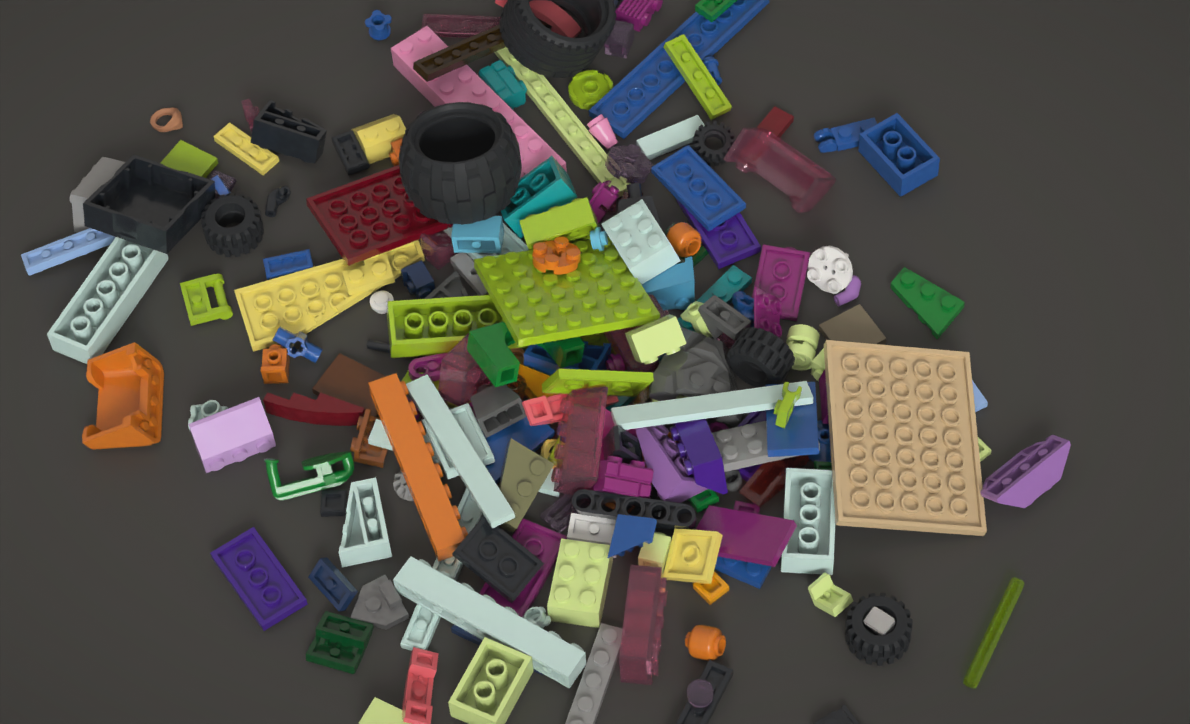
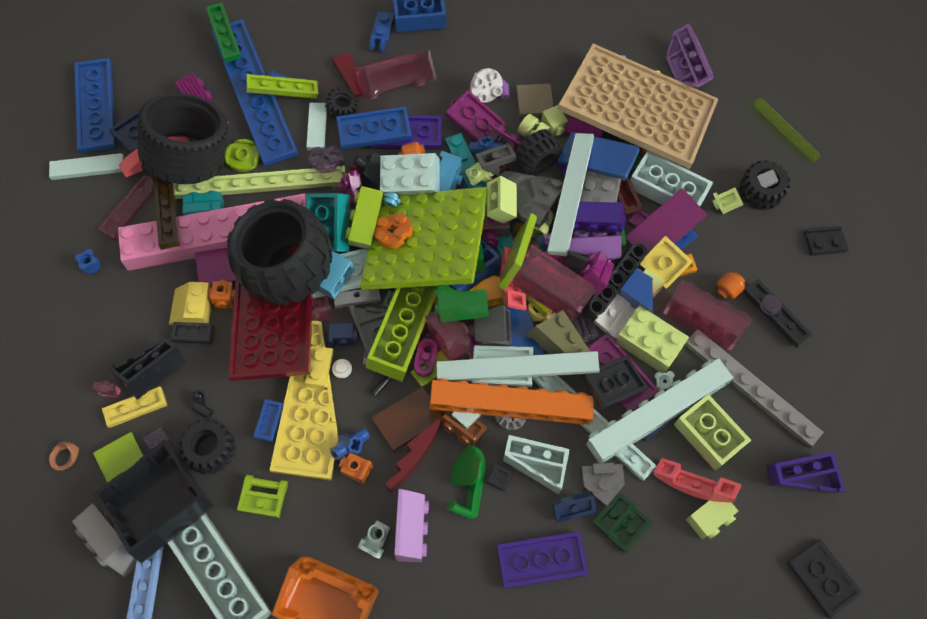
camera: 70 degrees left, 10 degrees up
(220, 186) = (169, 438): blue tile -> none
(602, 131) = (287, 162): bright pink cone -> none
(785, 407) = (598, 149): lime plate -> none
(931, 303) = (535, 49): green wing -> none

